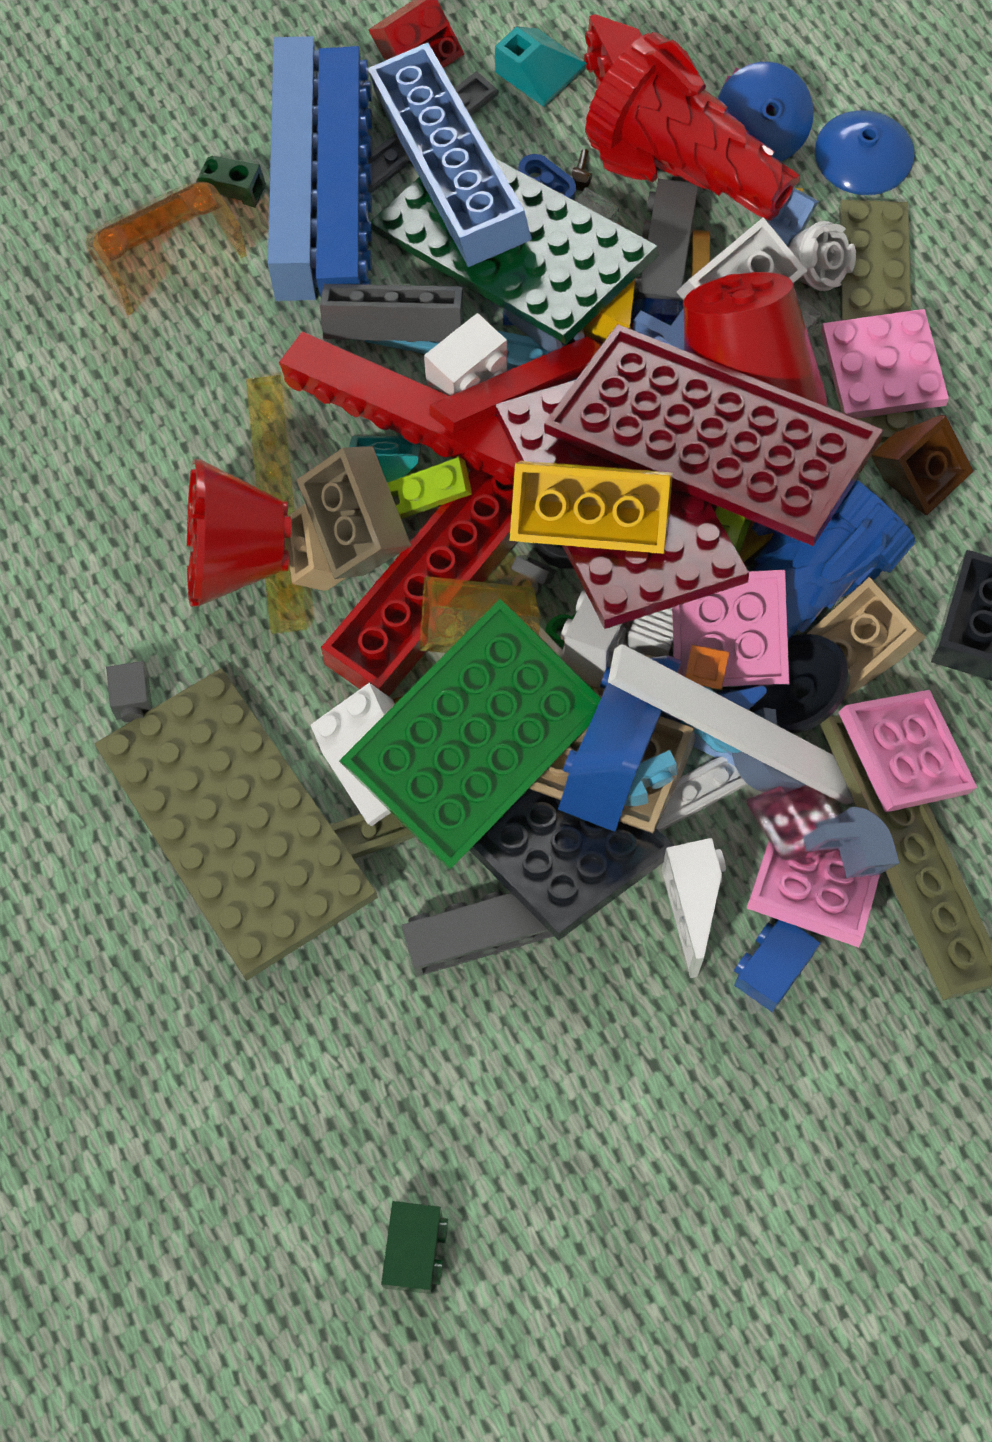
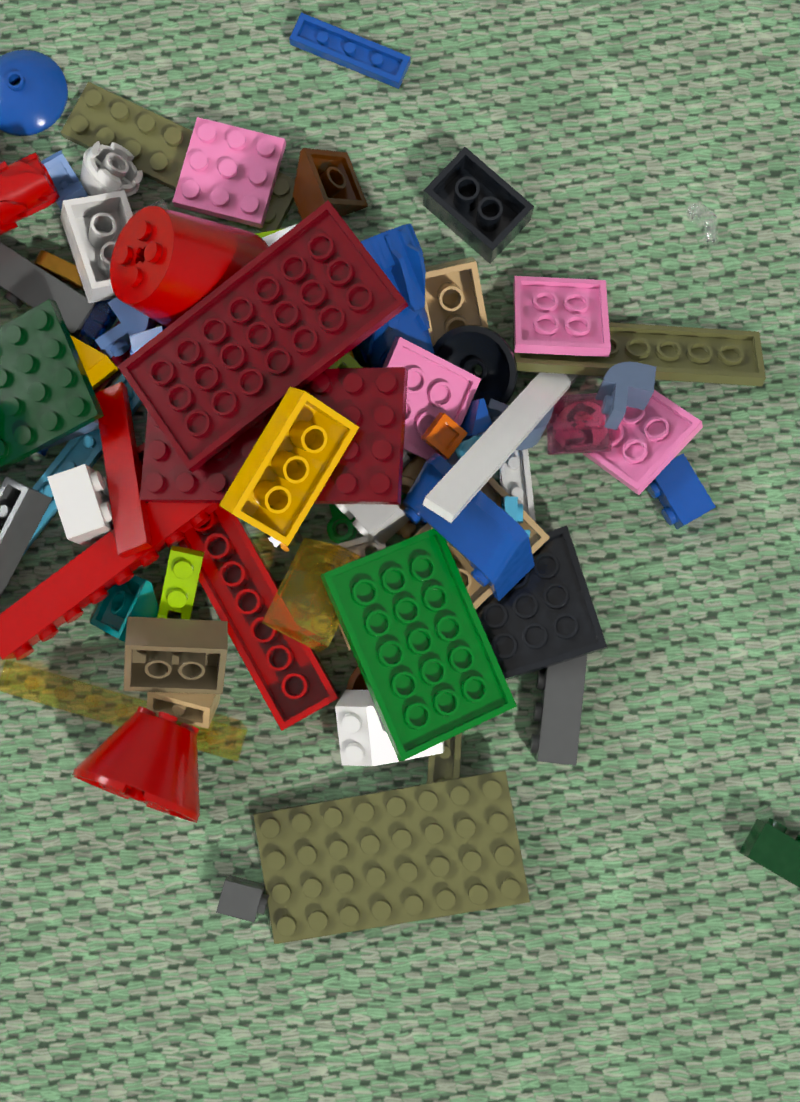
camera: 65 degrees left, 15 degrees up
(692, 885) = (611, 528): white slope -> none

